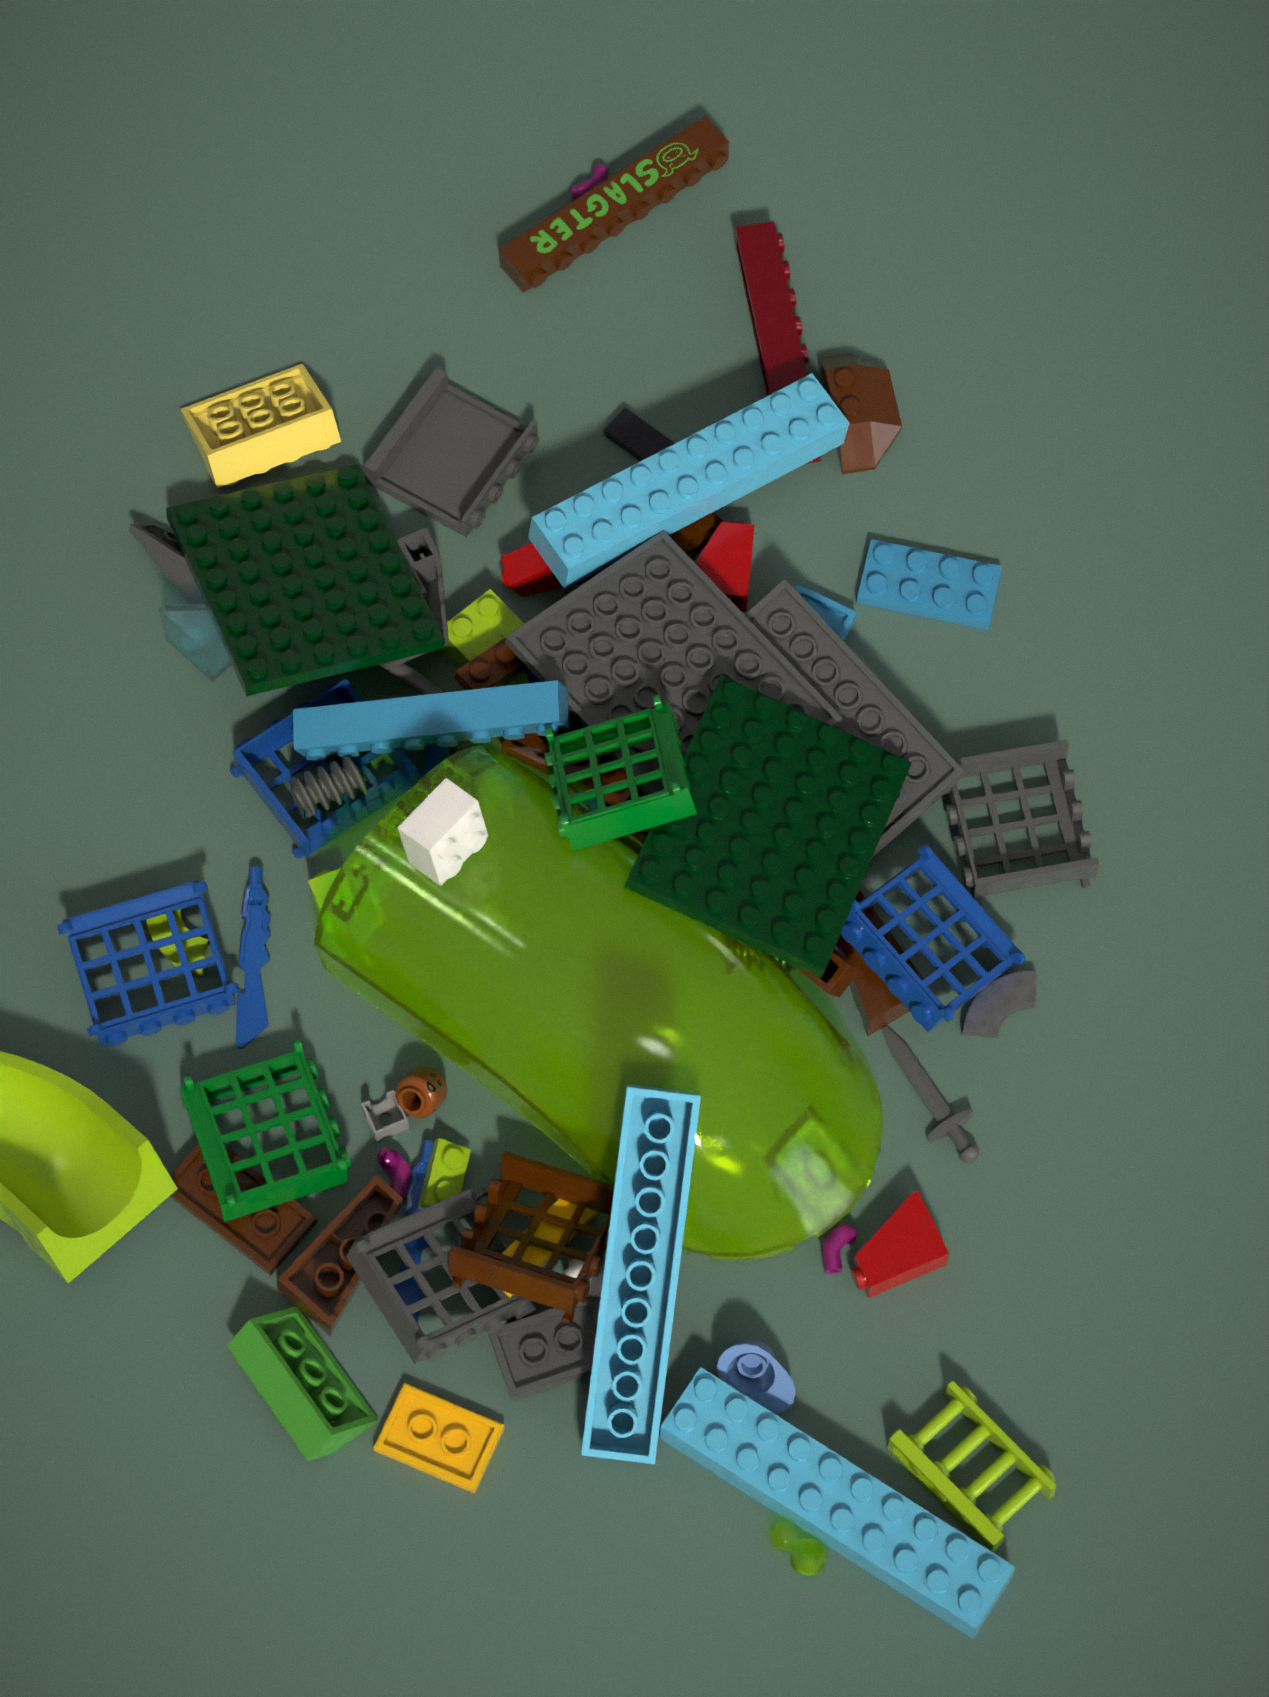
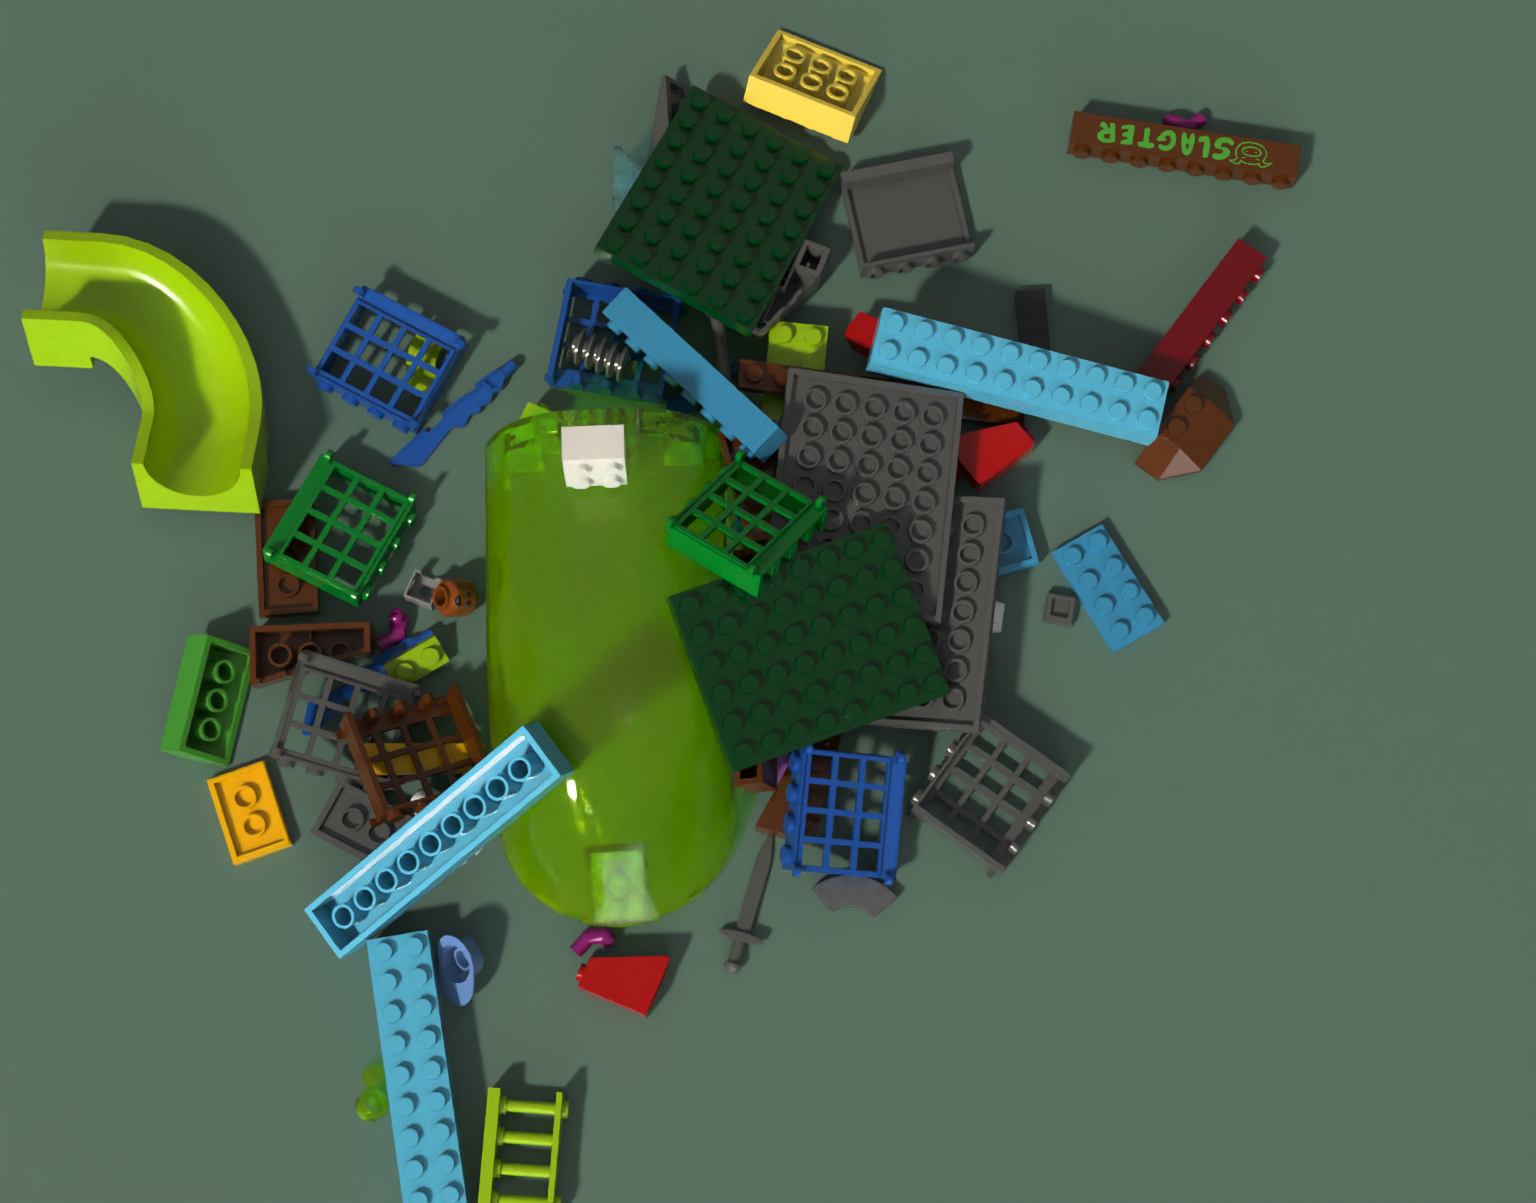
camera: 45 degrees right, 10 degrees up
(911, 635) = (1059, 609): none -> dark grey tile

